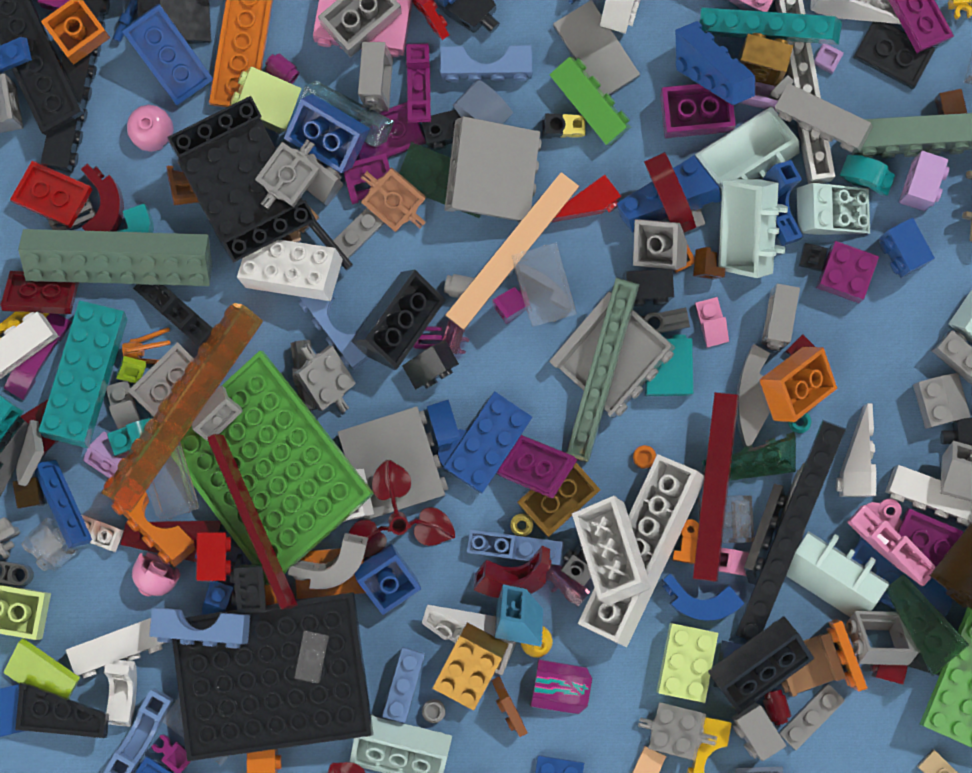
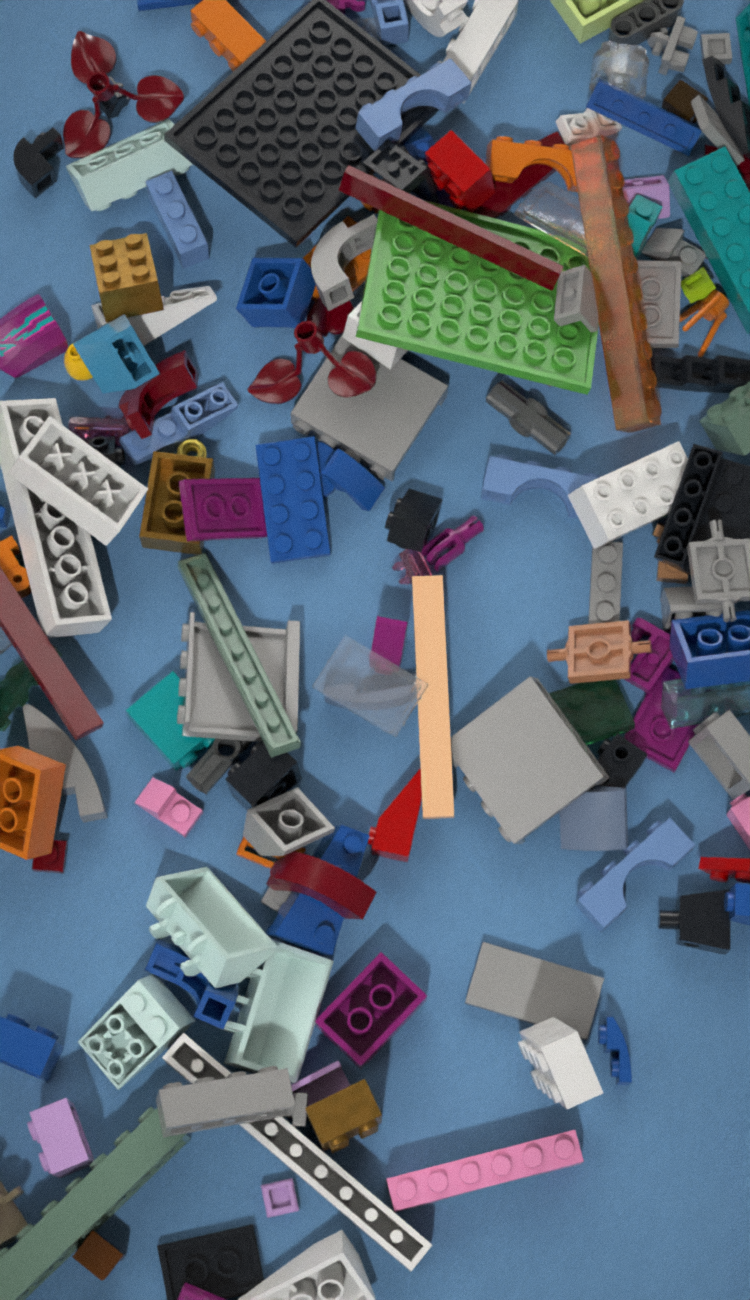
camera: 135 degrees right, 10 degrees down
(153, 575) = (499, 119): bright pink cylinder -> none
(311, 656) = (283, 155): clear plate -> none
(325, 378) = (506, 425): light grey plate -> none
(328, 242) = (622, 556): black bar -> none
(399, 319) = (484, 535): black slope -> none
(418, 83) = (680, 790): magenta slope -> none
(433, 711) = (129, 222): light grey plate -> none
(457, 284) = (459, 625): light grey brick -> none
(506, 704) = (59, 277): dark orange wing -> none
(562, 126) = (495, 876): leg -> none
(590, 100) = (491, 925): bright green brick -> none
(644, 457) = (125, 617): orange tile -> none
(706, 263) = (222, 857): reddish brown panel -> none
(712, 65) = (392, 1058): blue wedge -> none
(771, 24) = (367, 1160): teal brick -> none
(780, 316) = (99, 862): light grey window -> none
(813, 257) = (118, 964): black tile -> none
(847, 272) = (67, 973): magenta brick -> none
(868, 172) = (127, 1098): teal brick -> none

